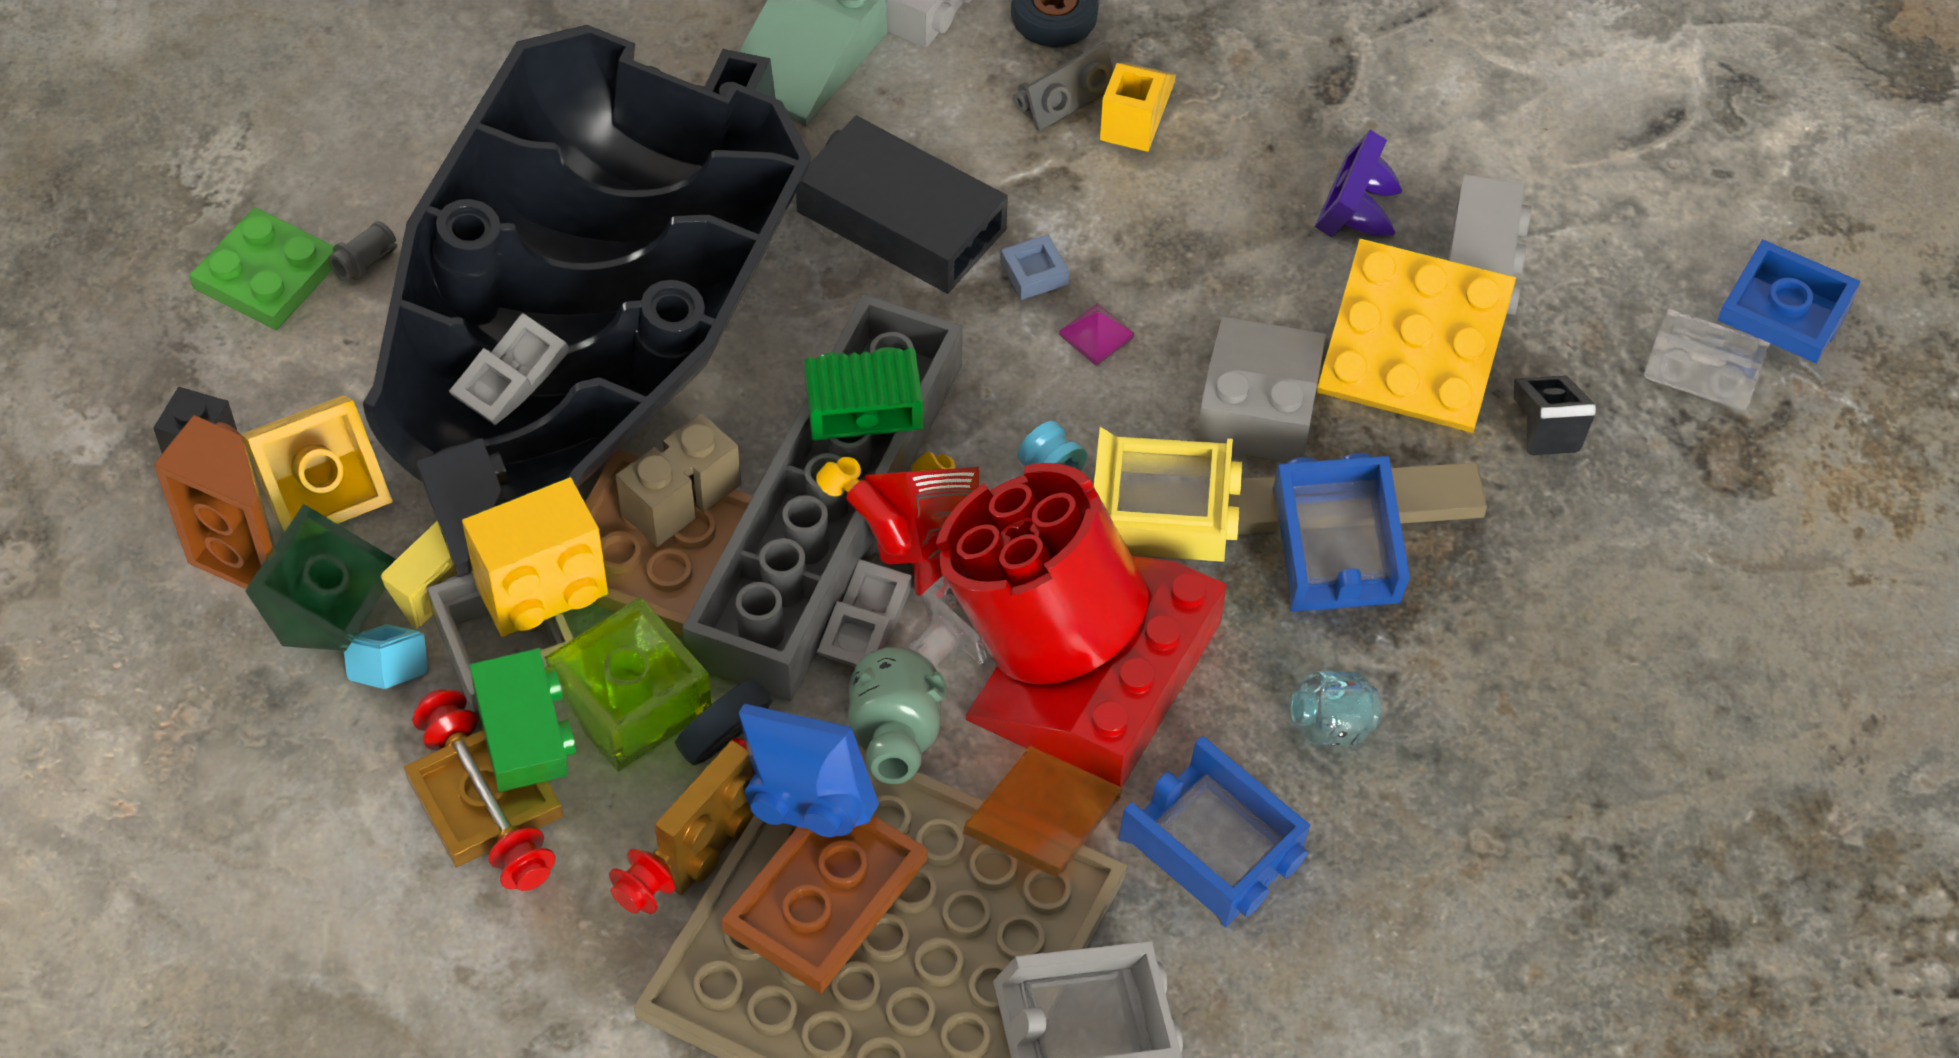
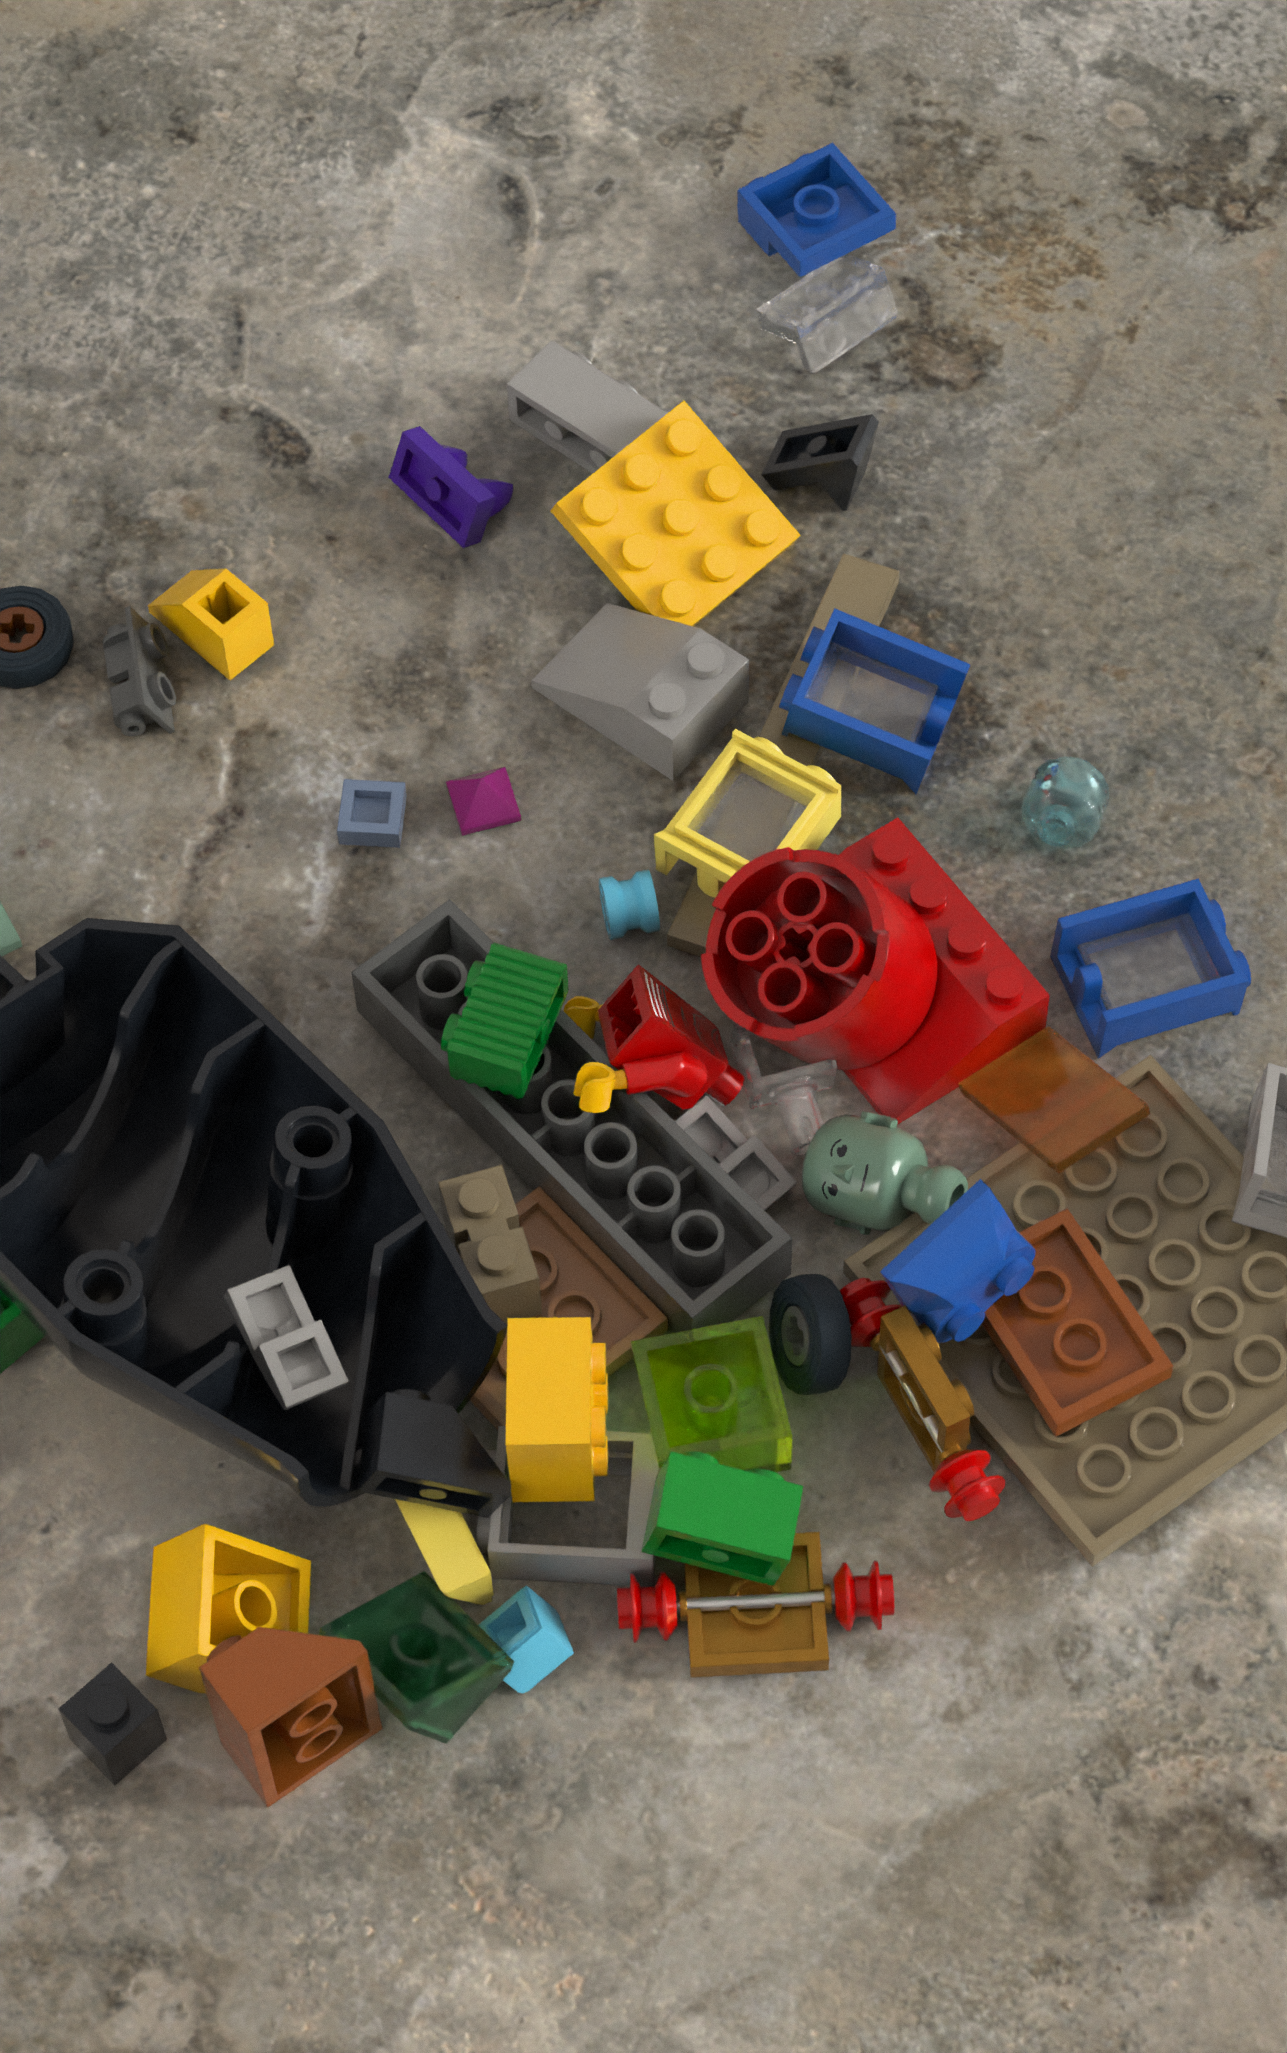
camera: 60 degrees left, 5 degrees up
(902, 204) = (226, 882): black brick -> none

